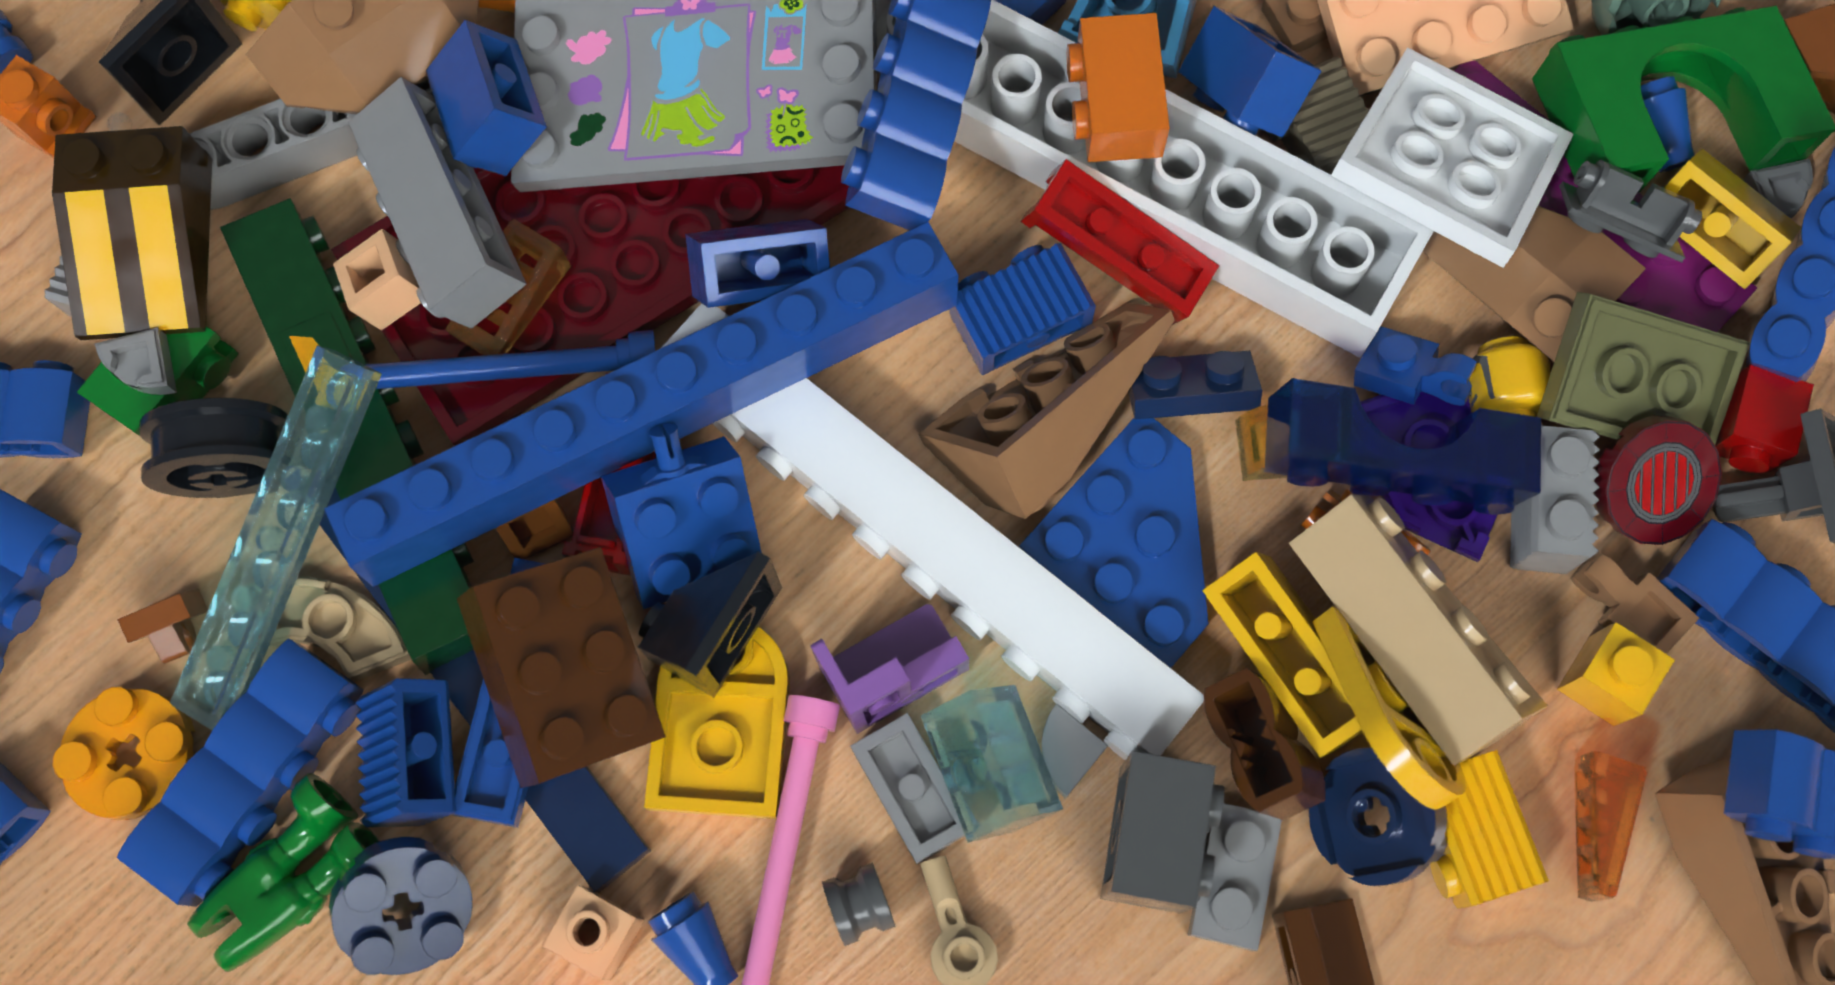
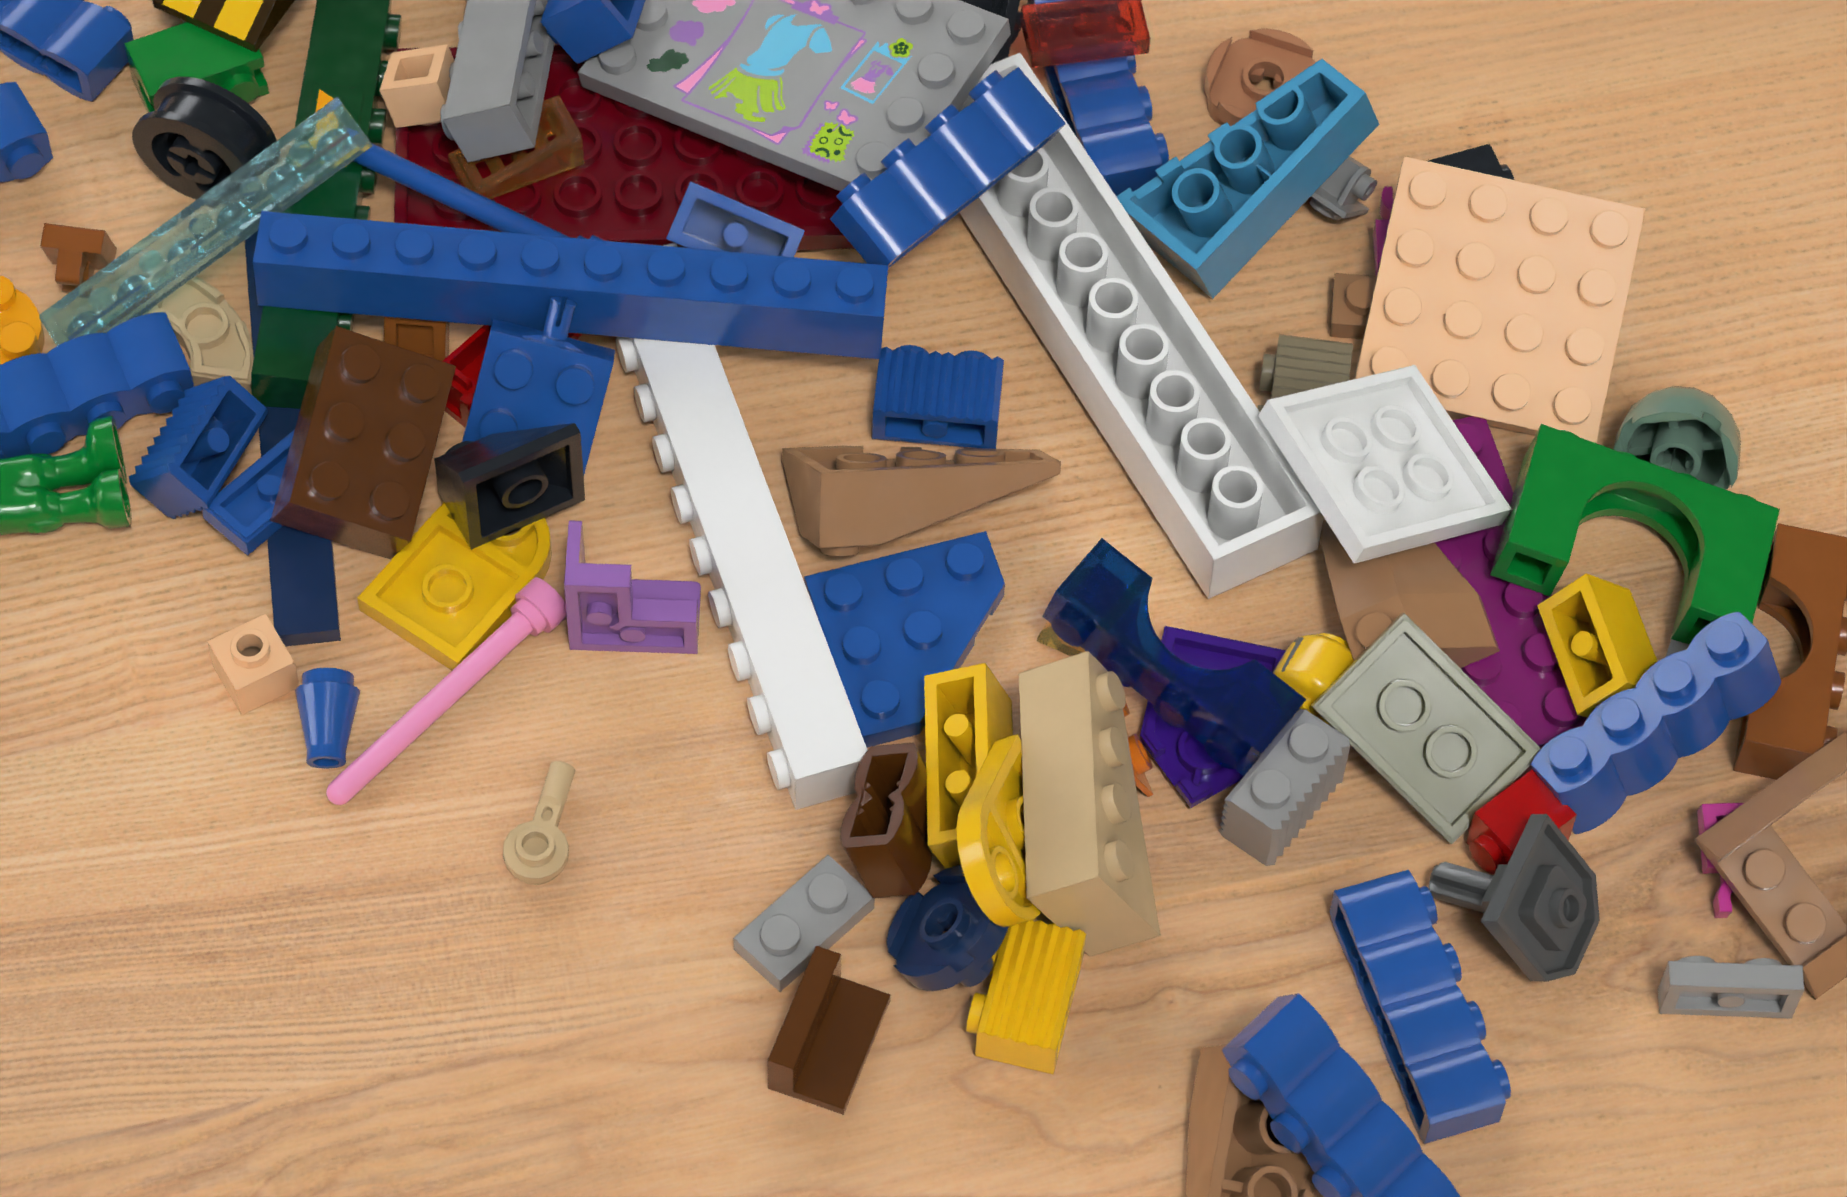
camera: 25 degrees right, 15 degrees down
(140, 361) = (190, 44): light grey tile -> none
(408, 944) = (83, 566): plate -> none
(858, 904) = (478, 760): dark grey wheel -> none
(910, 787) = (583, 704): light grey plate -> none
(991, 762) = (659, 711): clear light blue brick -> none
(1068, 749) = (734, 753): light grey tile -> none
(1120, 87) = (1125, 253): orange brick -> none
(1121, 241) = (1055, 384): red container -> none
(1161, 833) = (754, 832): dark grey brick -> none
(1196, 385) = (1036, 532): dark blue plate -> none
(1247, 74) = (1258, 311): blue brick -> none
(1406, 365) = (1240, 619): blue plate -> none
(1605, 815) = (1152, 1043): clear orange slope -> none
(1607, 203) = (1522, 612): dark grey hinge -> none
(1615, 674) = (1236, 944): yellow brick -> none
(1639, 606) = (1297, 918): medium nougat plate -> none
(1658, 480) = (1386, 817): tile -> none
(1670, 117) = (1620, 546): blue cone -> none

